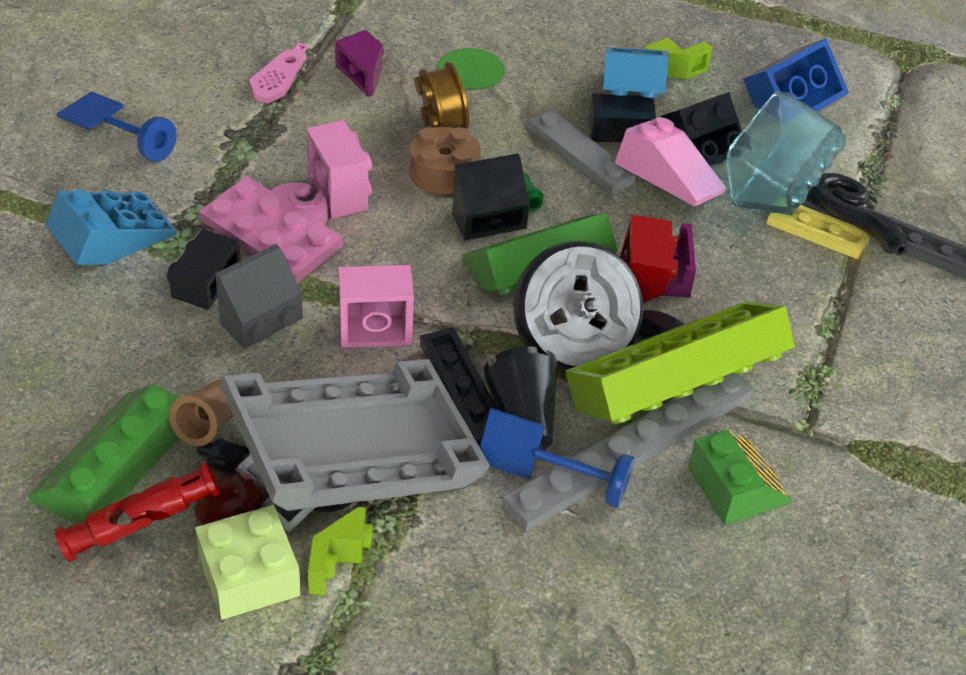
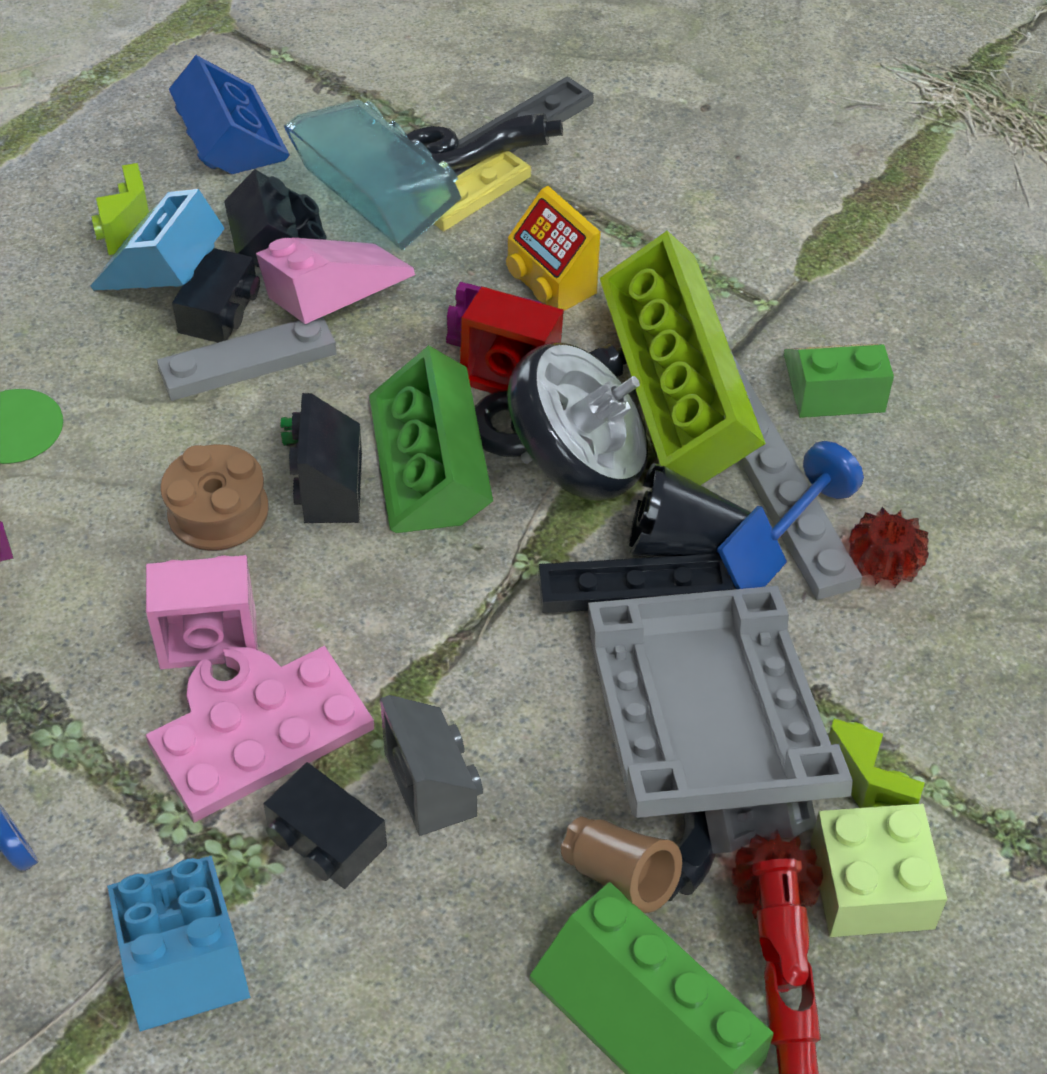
camera: 70 degrees left, 5 degrees up
(376, 306) = (491, 629): bright pink brick -> none
(442, 97) = (108, 457): pearl gold wheel -> none
(562, 533) = (888, 547): none -> clear red gear
(759, 272) = (555, 251): none -> yellow slope

